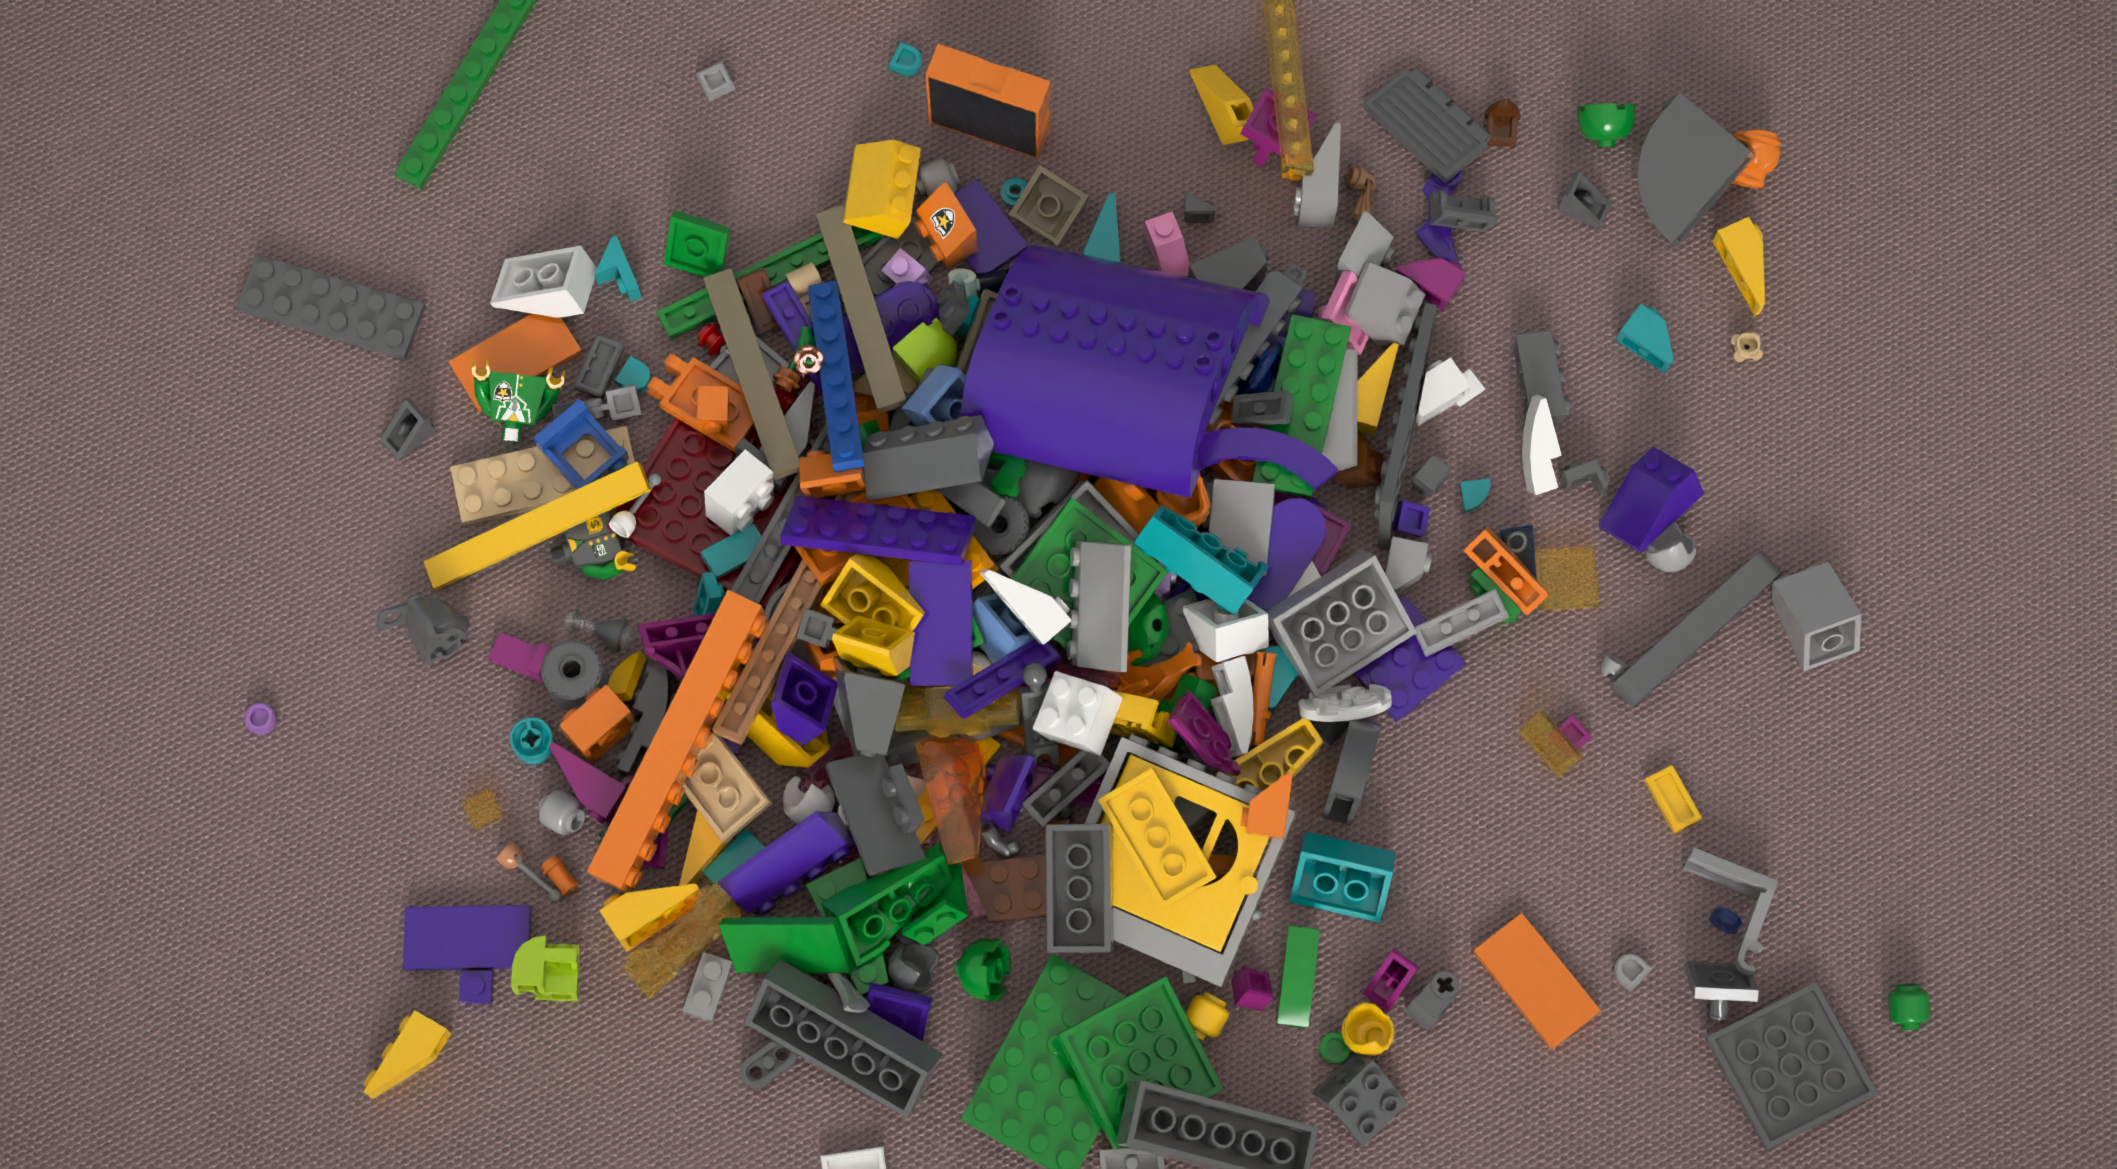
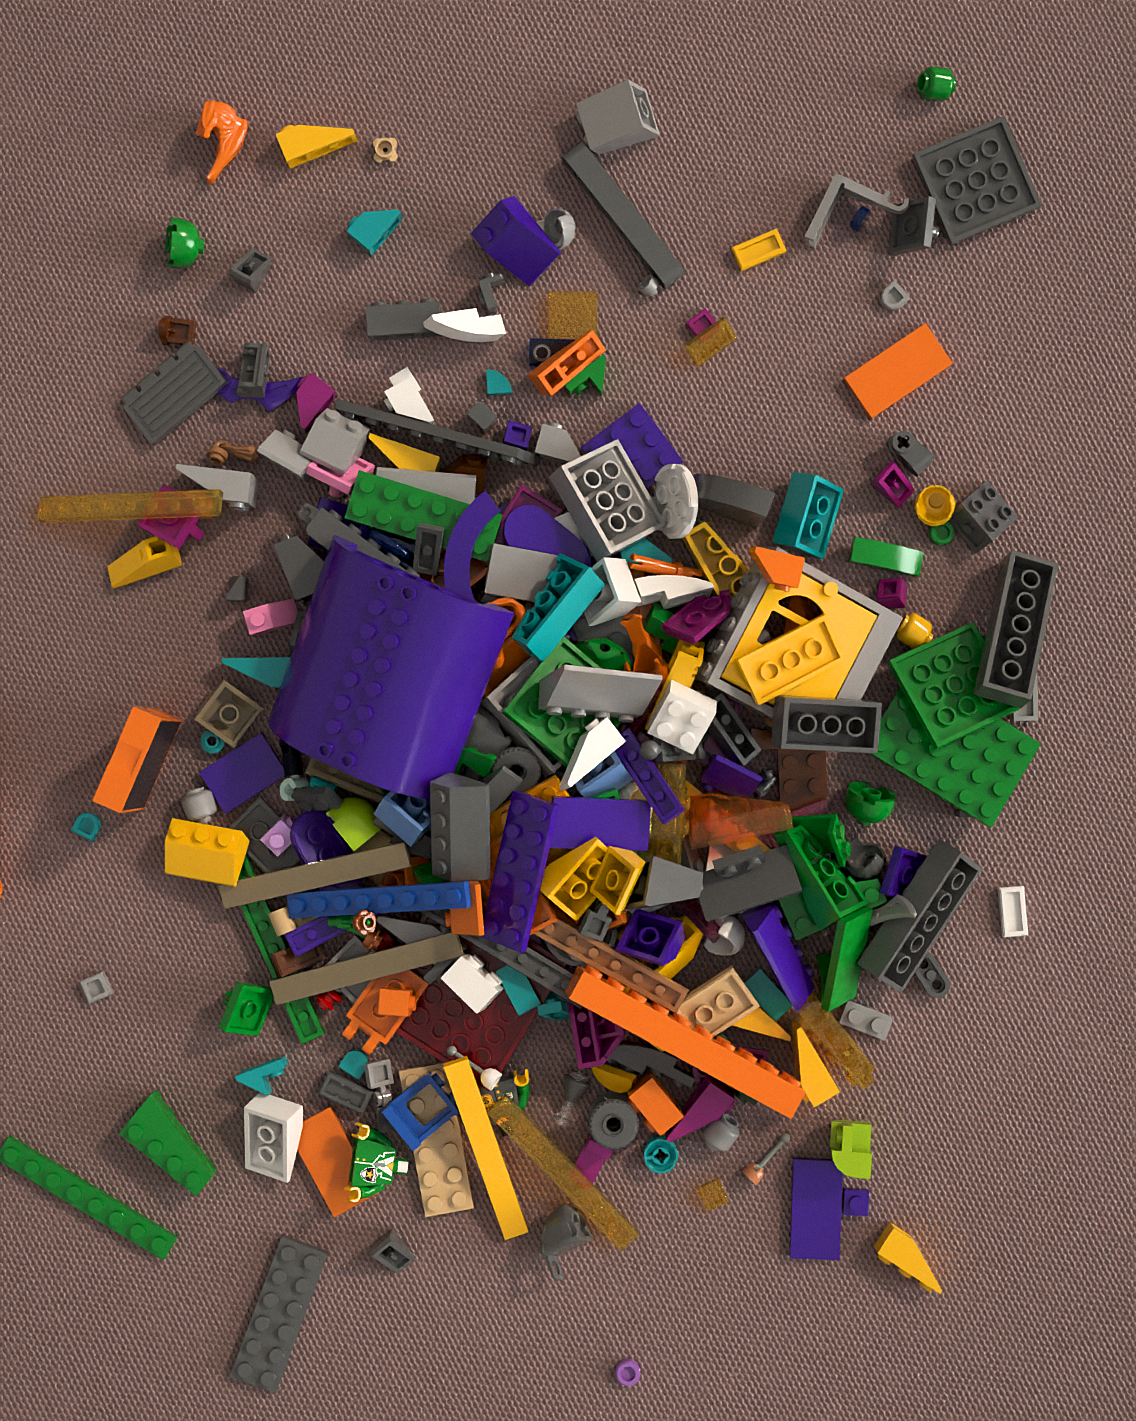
camera: 85 degrees left, 15 degrees up
(508, 621) = (562, 1172): none -> clear yellow plate
(532, 169) = (168, 1144): none -> green wedge
(559, 875) = (771, 1134): orange pin -> none
(946, 227) = (244, 800): orange slope -> none
(1460, 622) = (610, 403): light grey tile -> none
(1686, 167) = (228, 180): dark grey brick -> none

